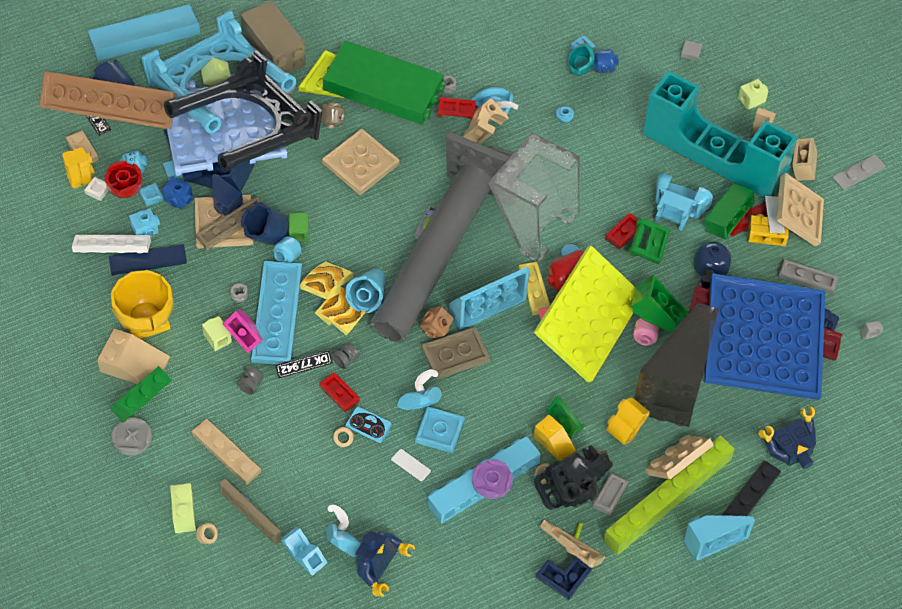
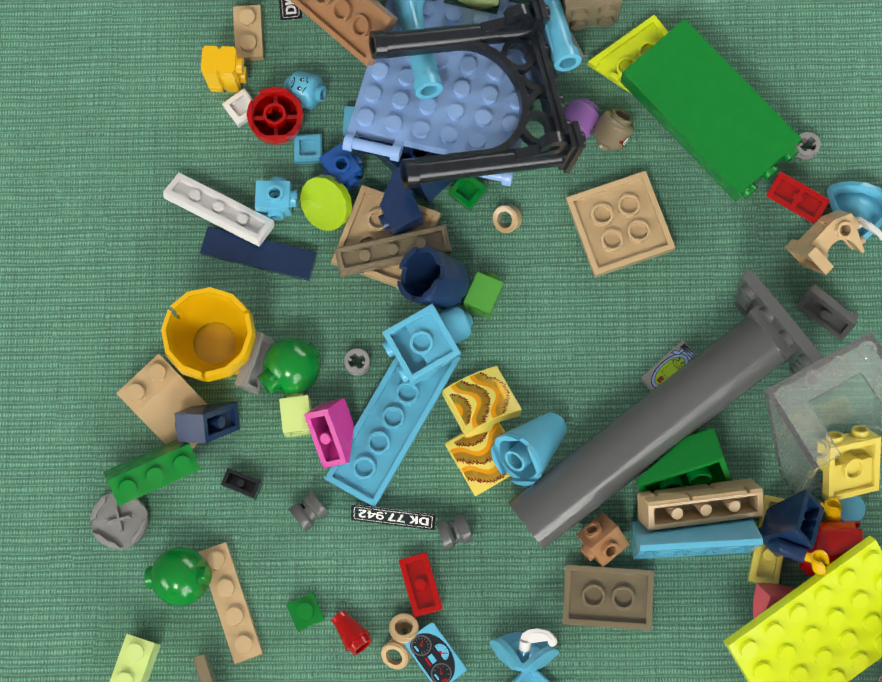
camera: 35 degrees right, 20 degrees up
(161, 355) = (207, 422): none -> dark blue slope
(177, 213) = (326, 202): none -> lime tile
(177, 318) = (247, 375): none -> light grey tile
(187, 446) = (179, 576): none -> green brick
(199, 307) = (290, 366): none -> green brick
(200, 384) = (241, 483): none -> black piece
(260, 178) = (467, 192): none -> green plate
(274, 261) = (420, 345): none -> medium azure plate
(276, 437) = (305, 612): none -> green plate
(290, 179) = (516, 216): none -> tan piece
(311, 435) = (353, 635): none -> red cone
(341, 418) = (400, 622): none -> tan piece
(467, 265) = (691, 462): none -> green slope
(483, 275) = (700, 504): none -> tan brick
(545, 263) = (793, 527): none -> dark blue torso
(558, 226) = (857, 467): none -> light yellow plate

